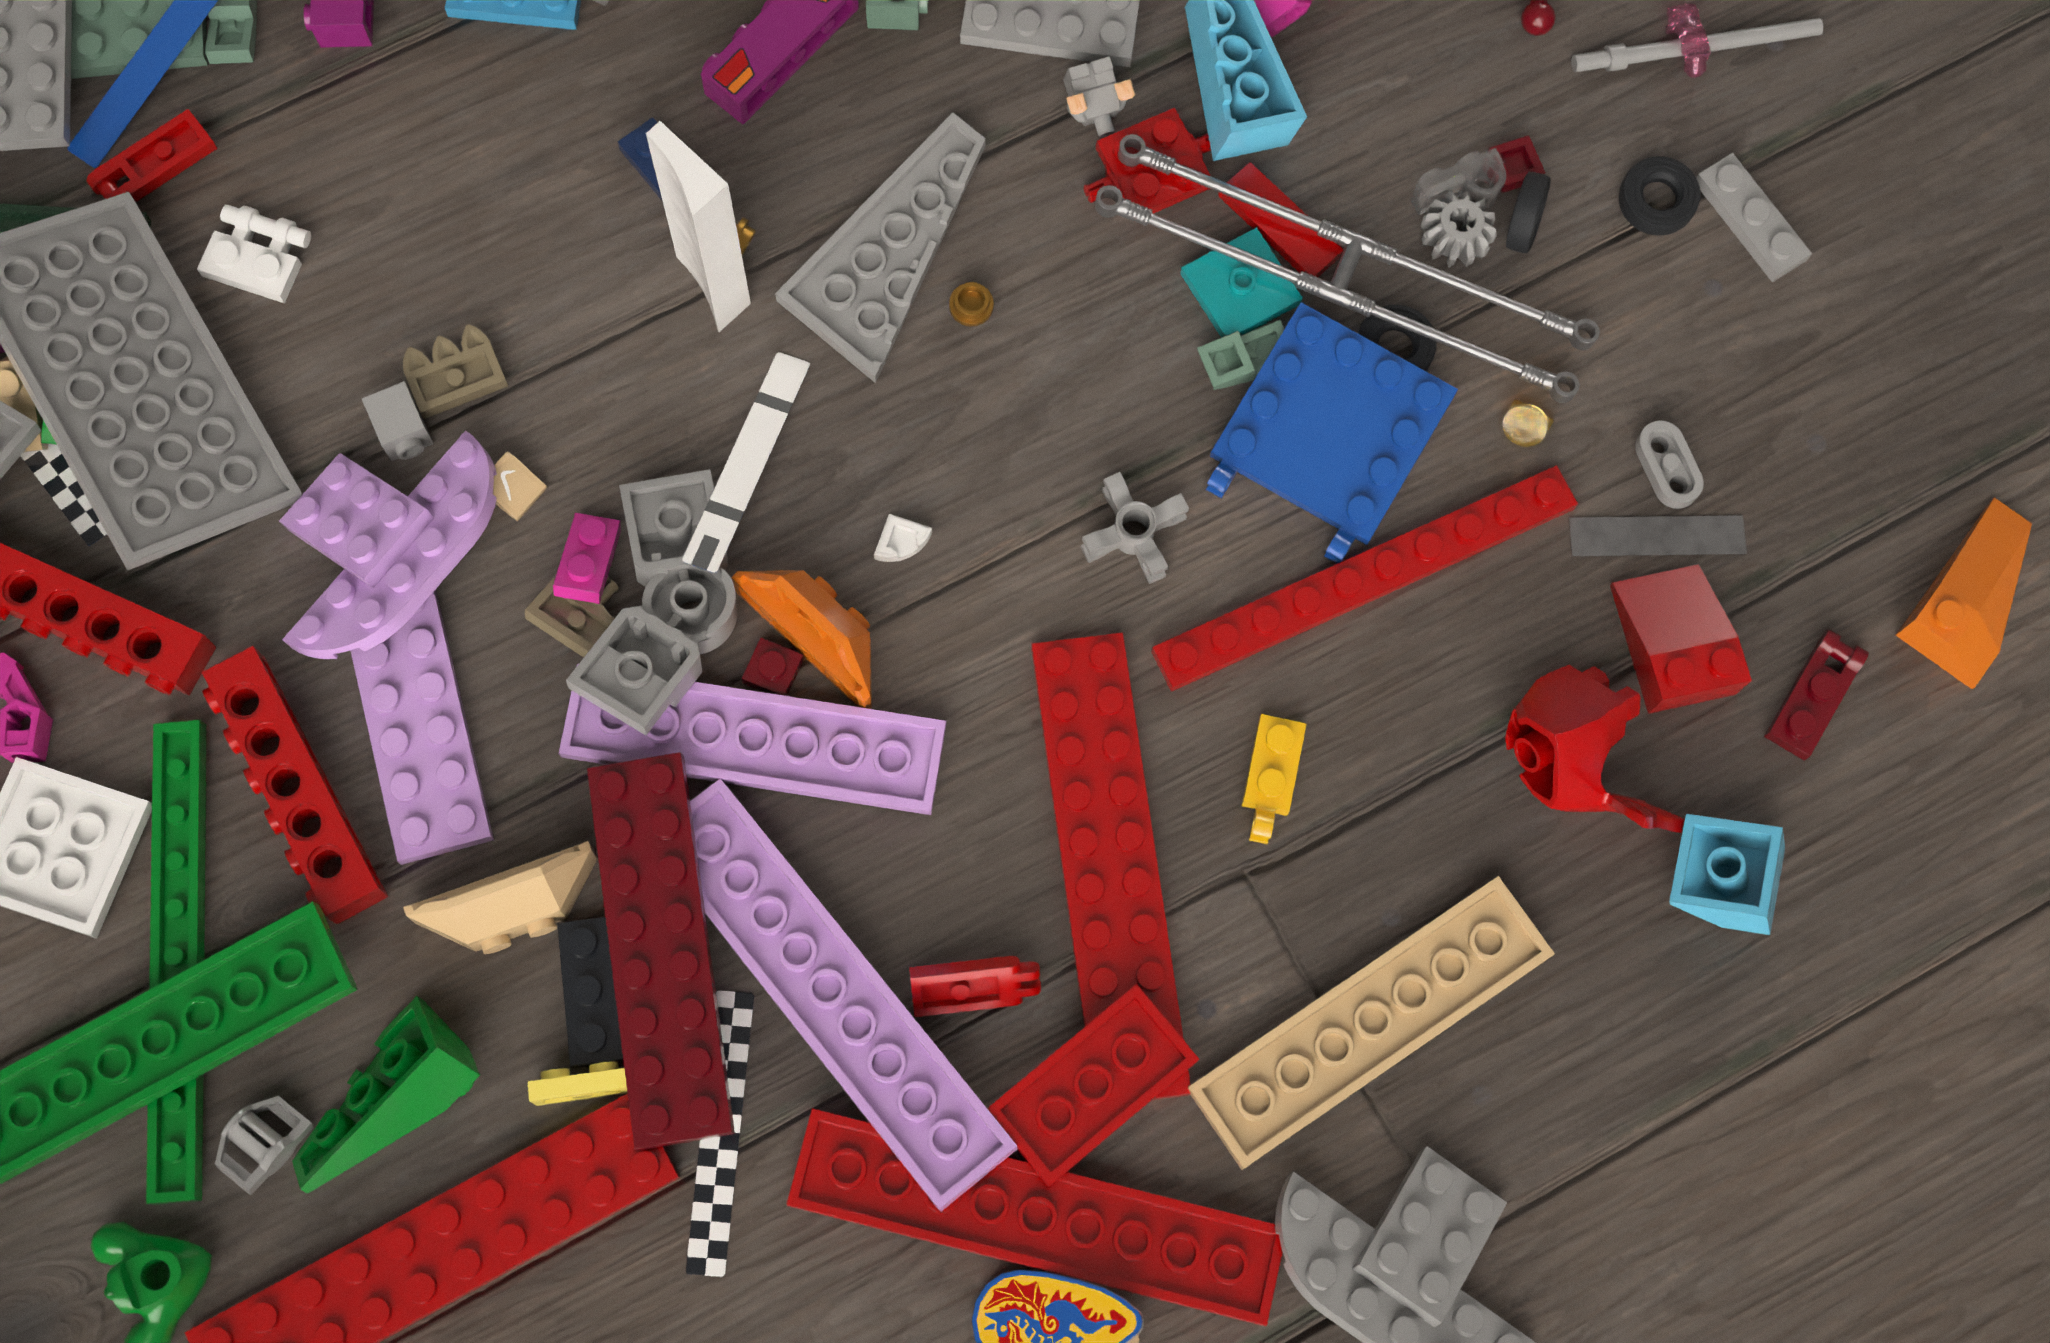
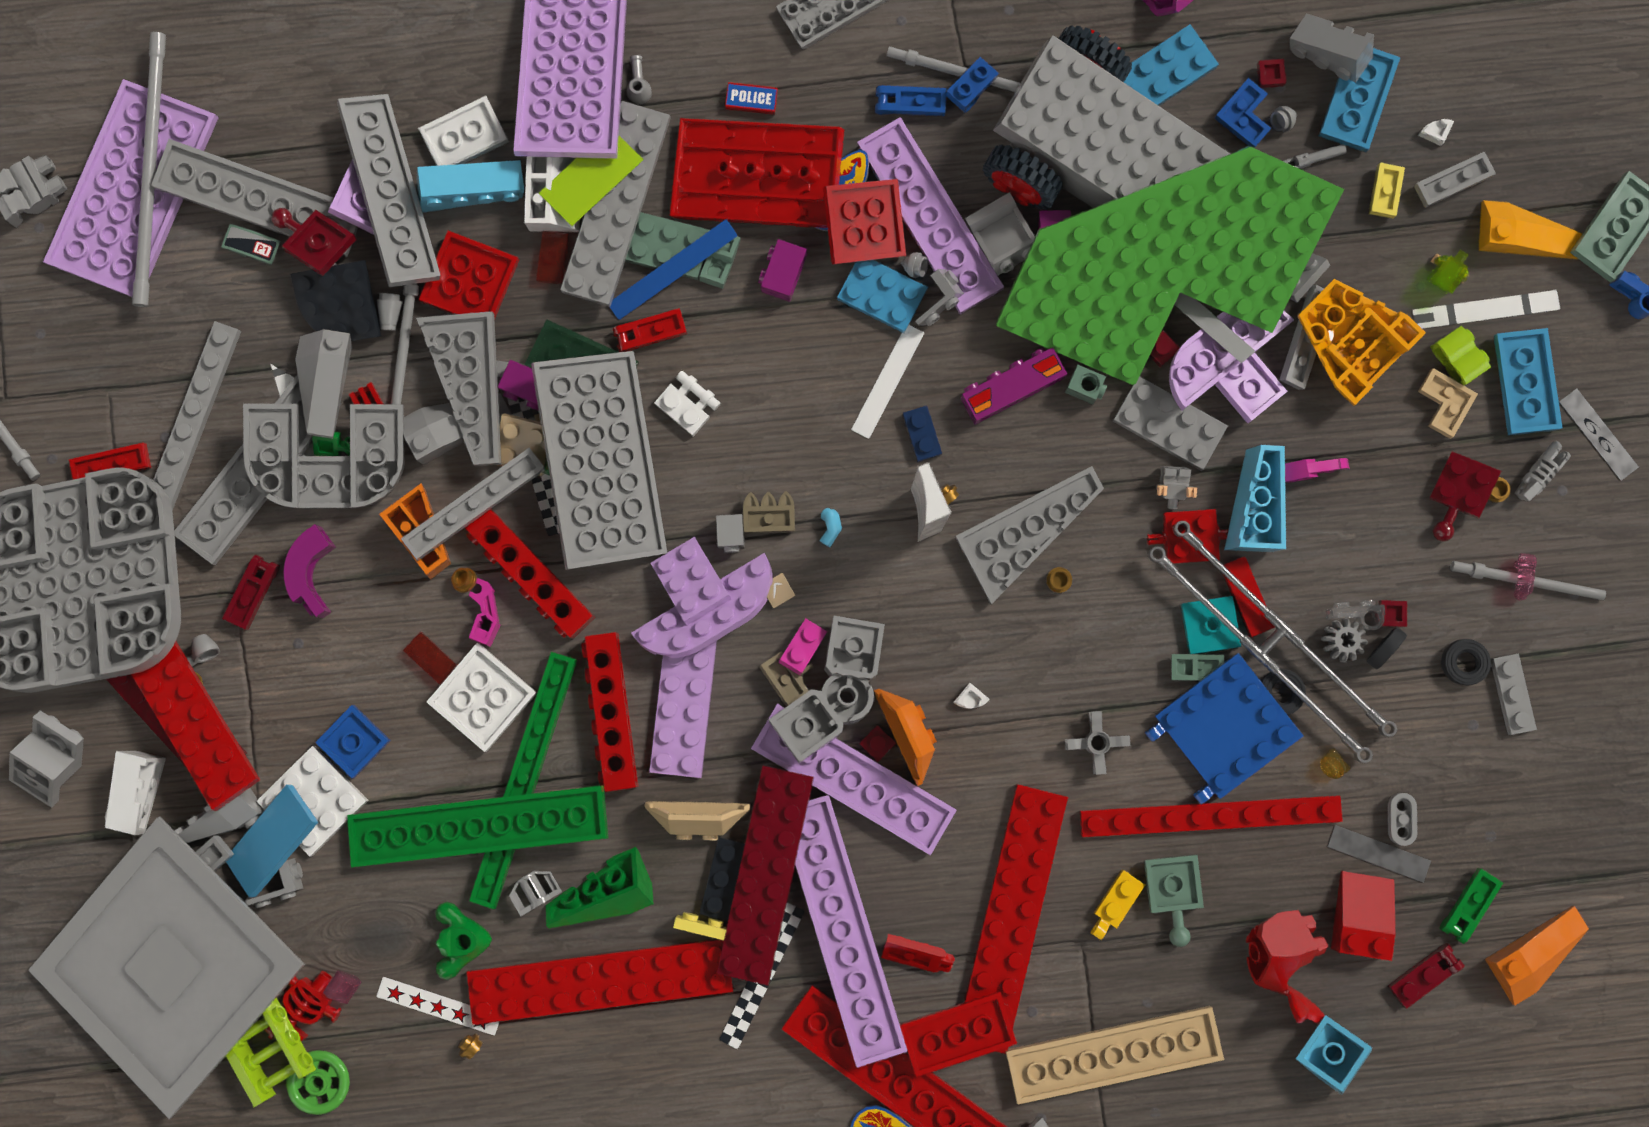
camera: 30 degrees right, 10 degrees up
(568, 352) = (833, 526): none -> medium azure arm
(576, 110) = (887, 381): none -> white sticker
(746, 463) = (905, 626): white sticker -> none
(1354, 709) = (1174, 887): none -> sand green plate
(1836, 555) = (1471, 905): none -> green plate

